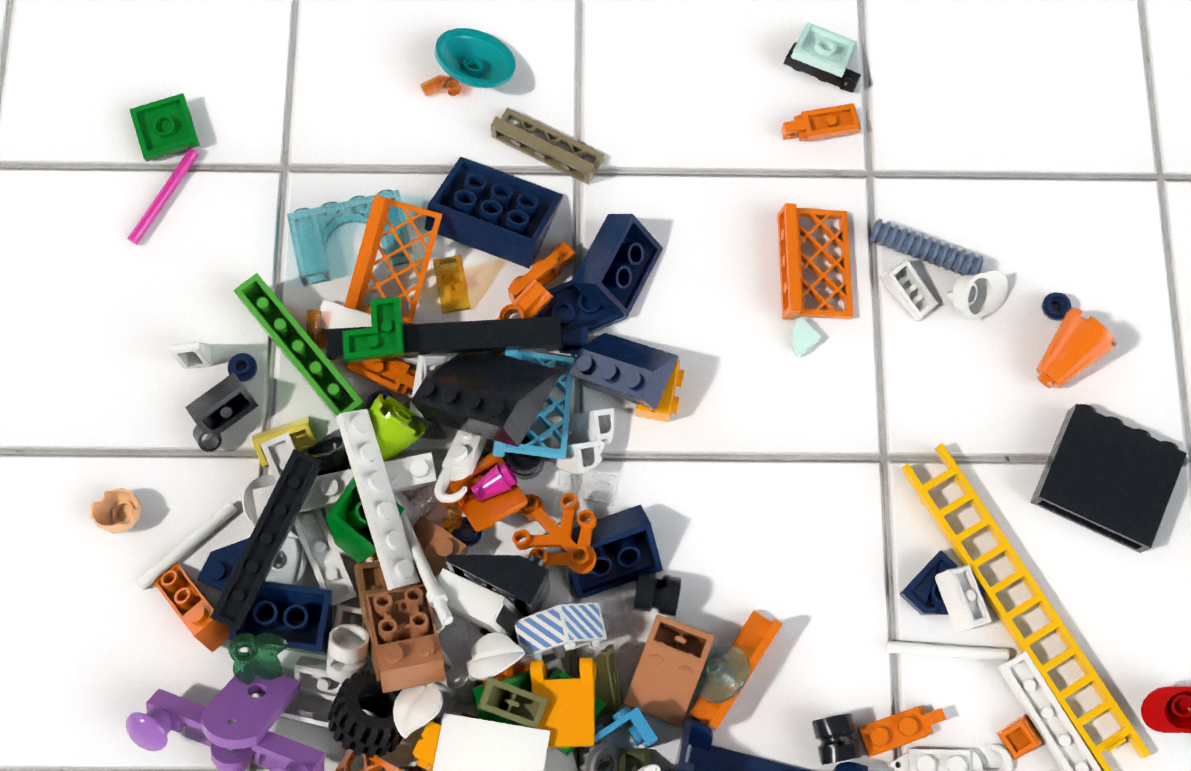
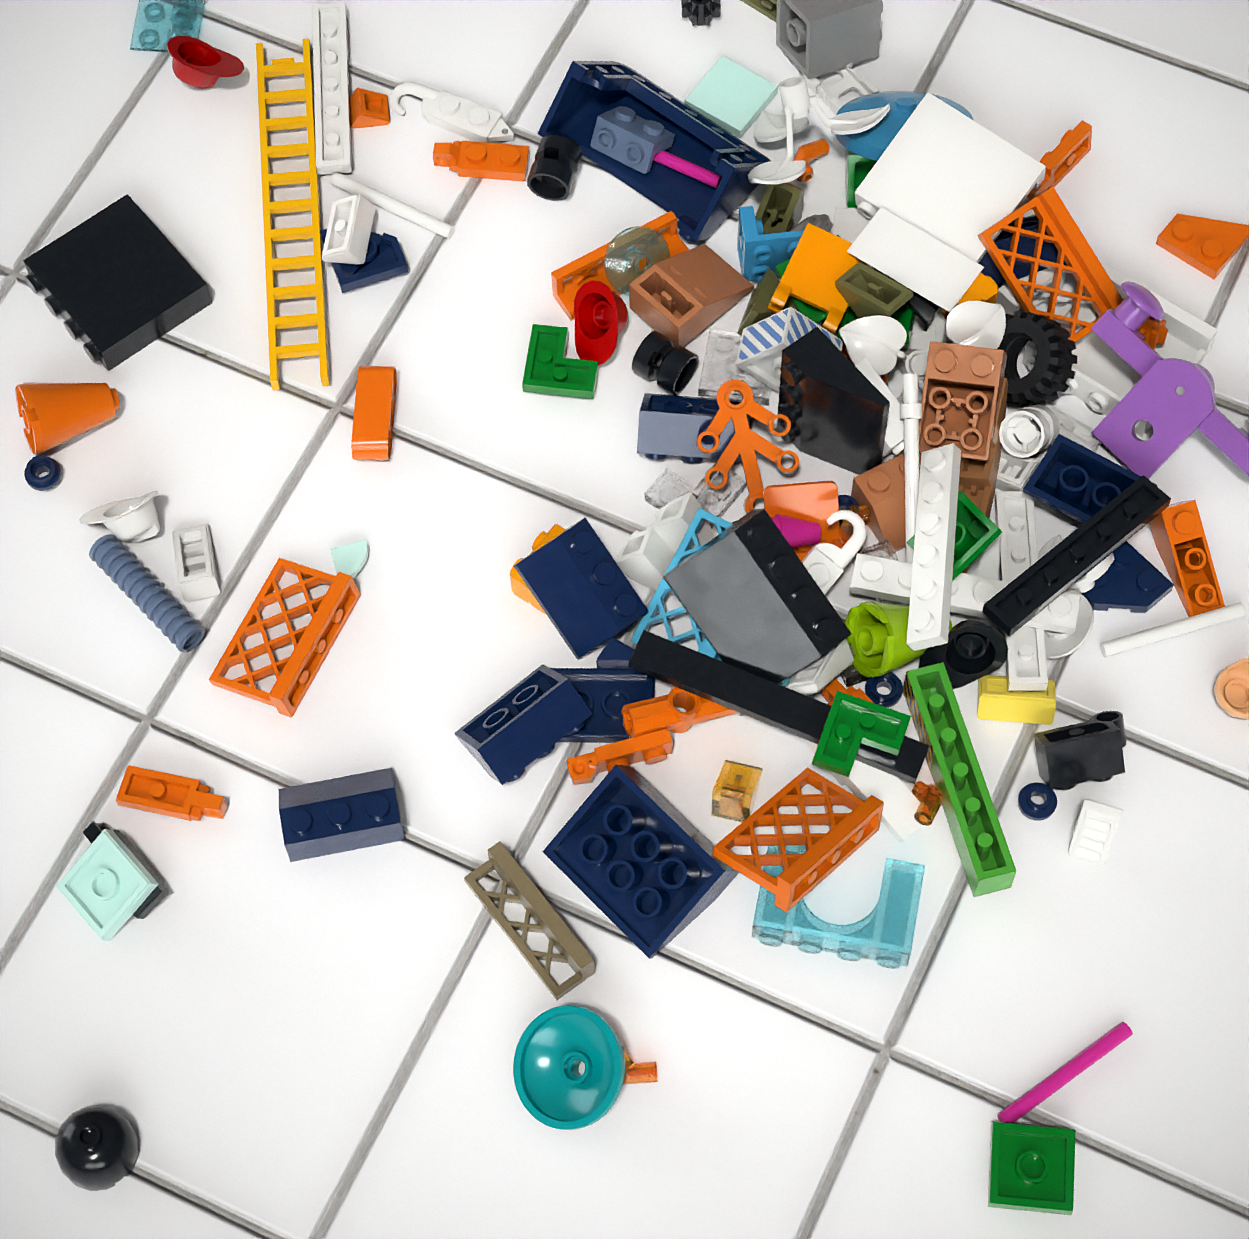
camera: 150 degrees left, 10 degrees down
(261, 658) = (1127, 451): clear green plate -> none
(706, 158) = (340, 814): none -> dark blue slope
(725, 608) = (598, 321): none -> red piece
(746, 552) = (552, 373): none -> green plate
(852, 456) = (374, 413): none -> orange beam

